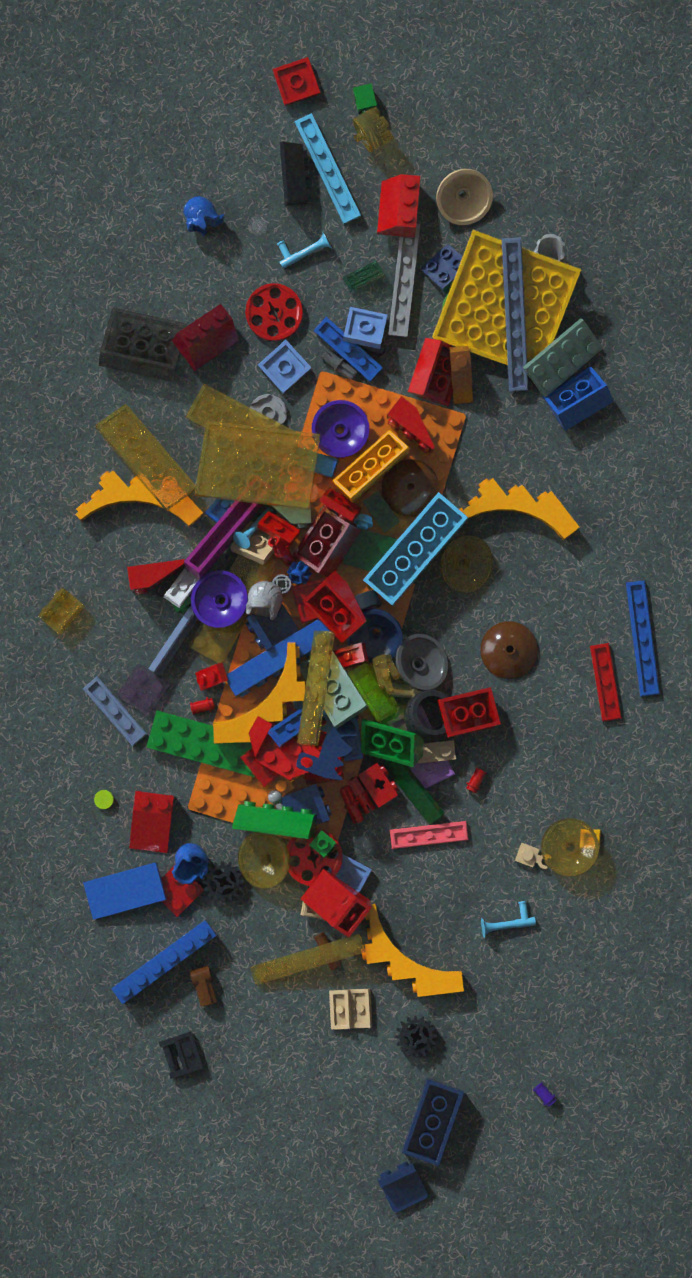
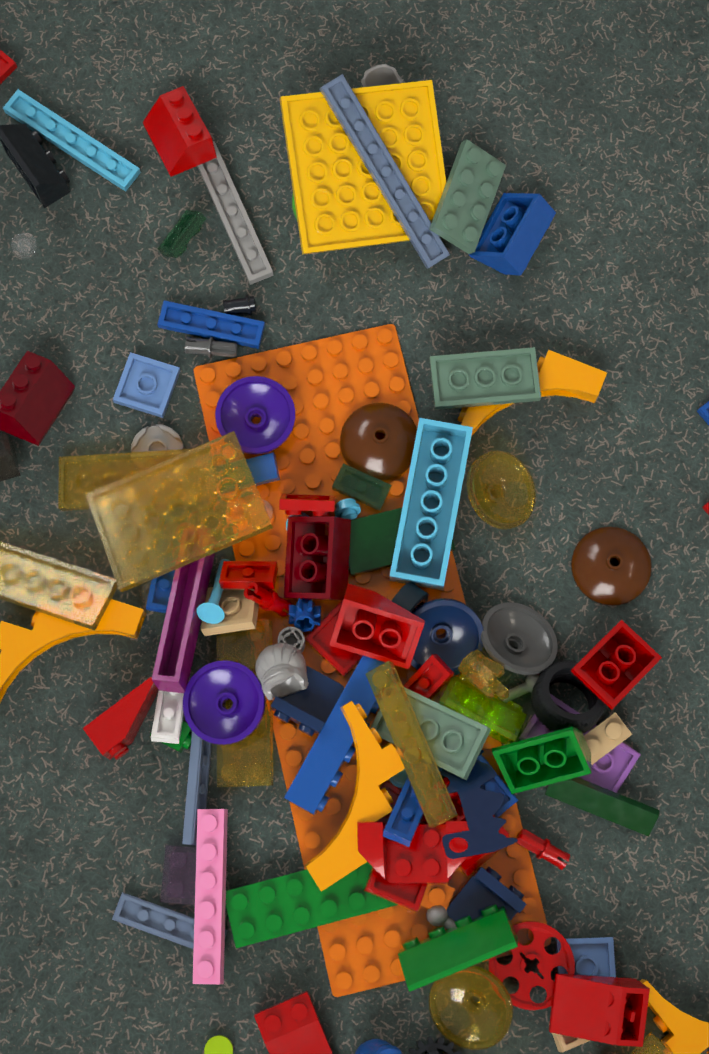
camera: 30 degrees left, 10 degrees down
(61, 610) = (30, 835): clear yellow bracket -> none
(148, 708) = (210, 896): none -> bright pink plate
(202, 706) = (278, 852): red pin -> none
(211, 676) = (268, 807): red plate -> none
(283, 313) = (100, 342): red wedge -> none
(291, 259) = (83, 263): medium azure piece -> none
(295, 516) = (261, 547): sand green slope -> none
(323, 844) = (537, 941): green brick -> none
(351, 804) = (538, 868): red axle -> none
(364, 97) = (71, 42): green brick -> none
(365, 327) = (217, 287): medium blue plate -> none
(368, 779) = (566, 836): red brick -> none
(371, 129) = (98, 67): clear yellow piece -> none
(371, 466) = (318, 437): light orange slope -> none
(407, 418) = (336, 361): red slope -> none
(428, 834) = (655, 849): coral tile -> none
(433, 373) = (330, 292): red slope -> none
(443, 268) = (271, 175): dark blue bracket -> none
(461, 374) = (362, 277): dark orange slope -> none
(472, 204) = (261, 79): tan dish -> none
(476, 780) = (671, 747): red pin -> none
(498, 487) = (484, 378): none -> sand green plate

